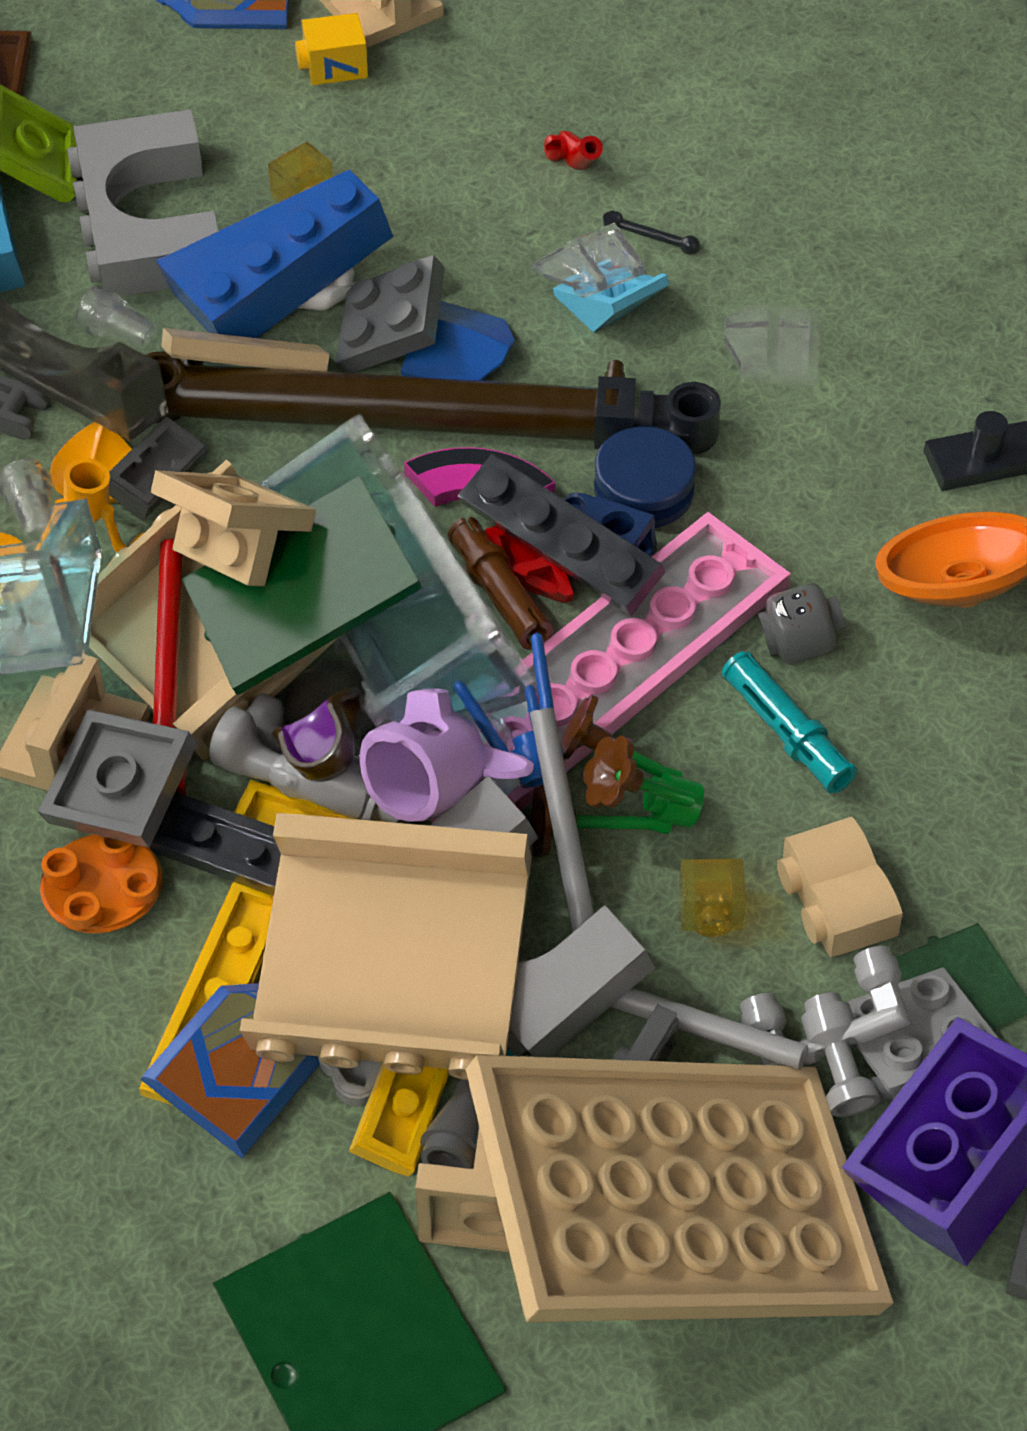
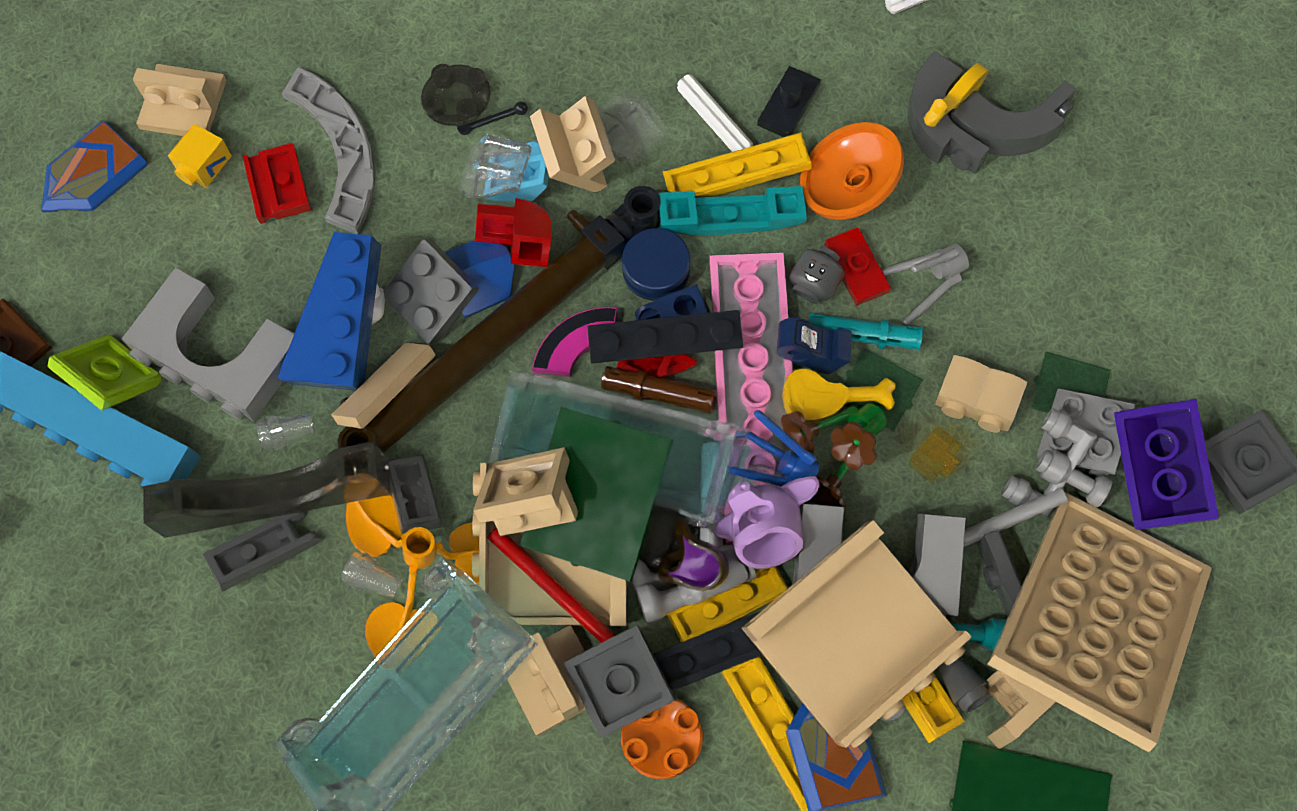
camera: 45 degrees left, 15 degrees up
(298, 171) = (282, 253): clear yellow plate -> none
(374, 124) = (276, 183): none -> red plate
(479, 154) = (350, 144): none -> light grey tile
(540, 329) = (522, 226): none -> red brick
(562, 816) = (851, 491): light grey bar -> none
(576, 151) = (401, 104): red arm -> none
(638, 182) = (455, 94): none -> clear smoke dish
(648, 715) = (821, 399): none -> yellow piece
(684, 299) = (574, 145): none -> tan bracket
(705, 672) = (813, 345): none -> dark blue leg
(741, 792) = (870, 371): none -> clear green piece
(779, 499) = (732, 214): none -> teal slope
(844, 467) = (741, 168): none -> yellow tile
(862, 660) = (862, 273): none -> red plate
(884, 405) = (713, 113): none -> white axle
(966, 735) = (943, 263): none -> light grey plant

